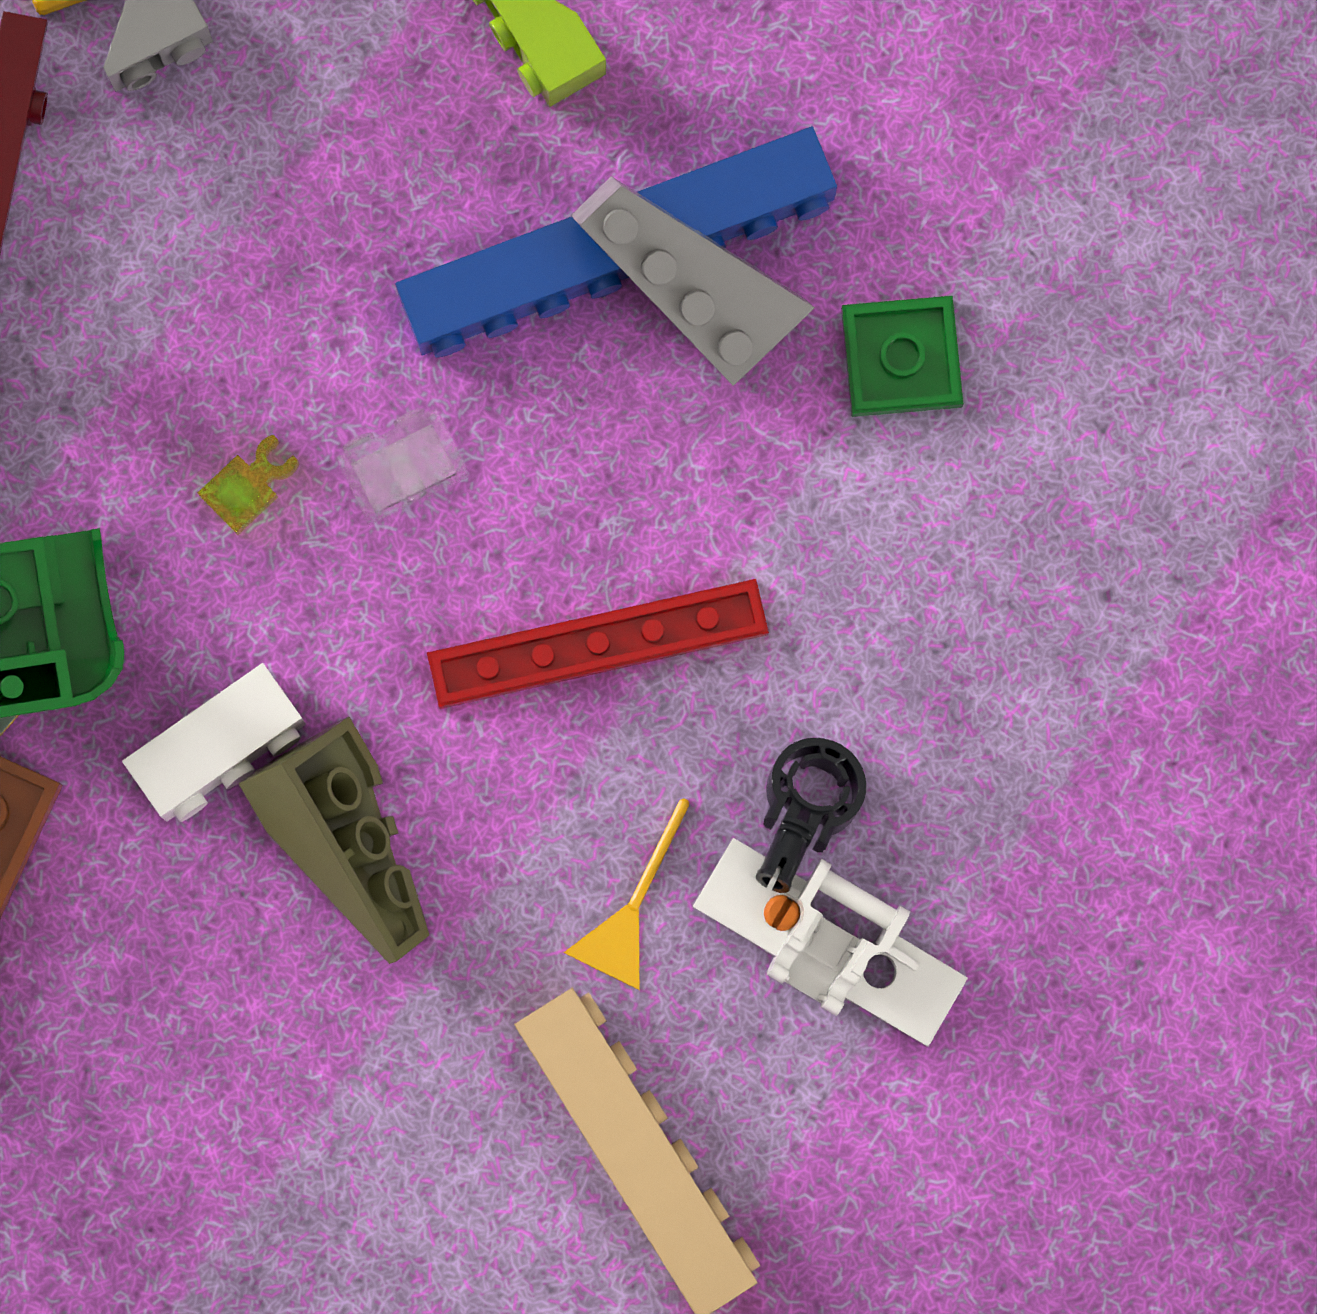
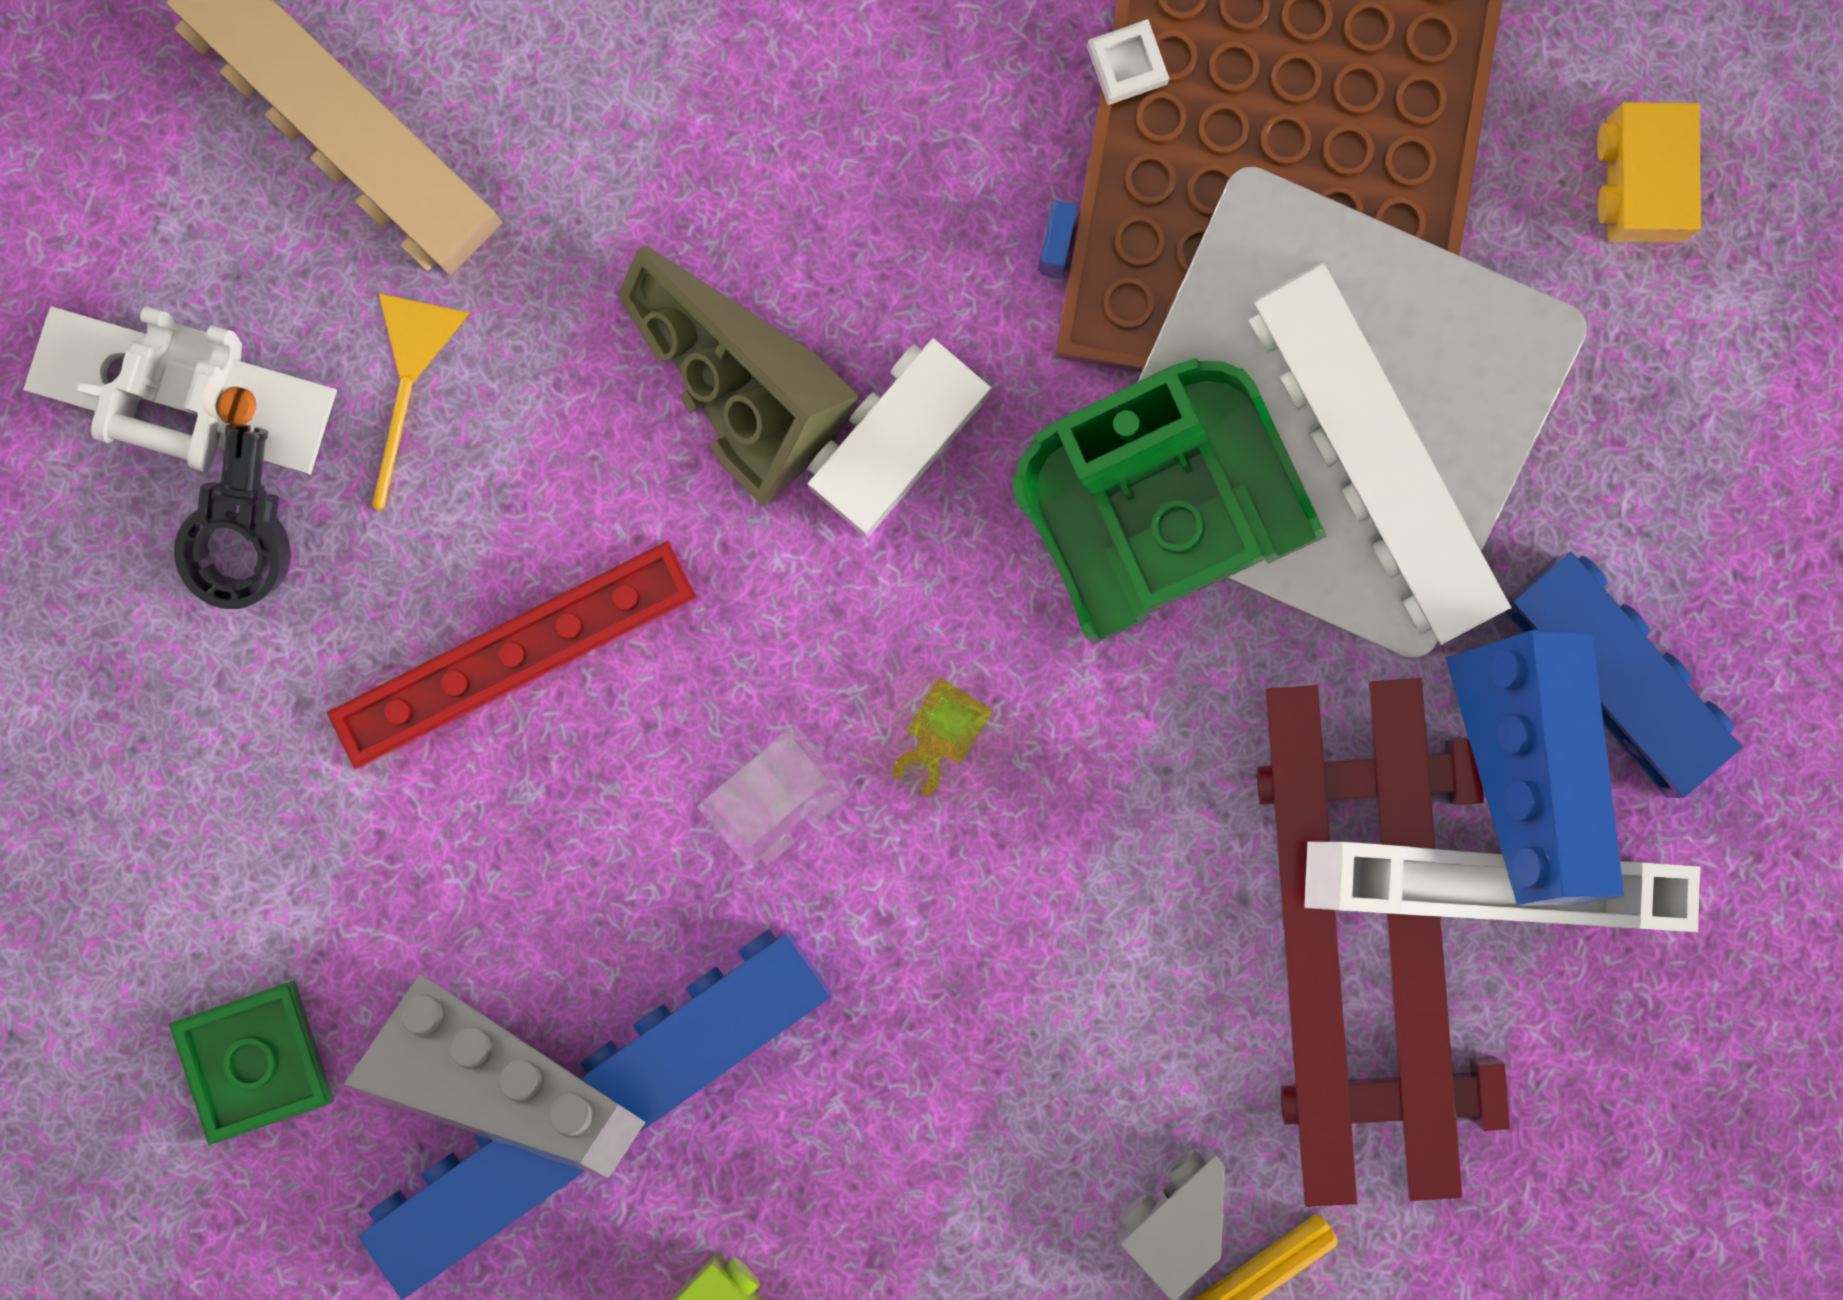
camera: 170 degrees right, 5 degrees up
(31, 882) = (1057, 239): none -> blue tile

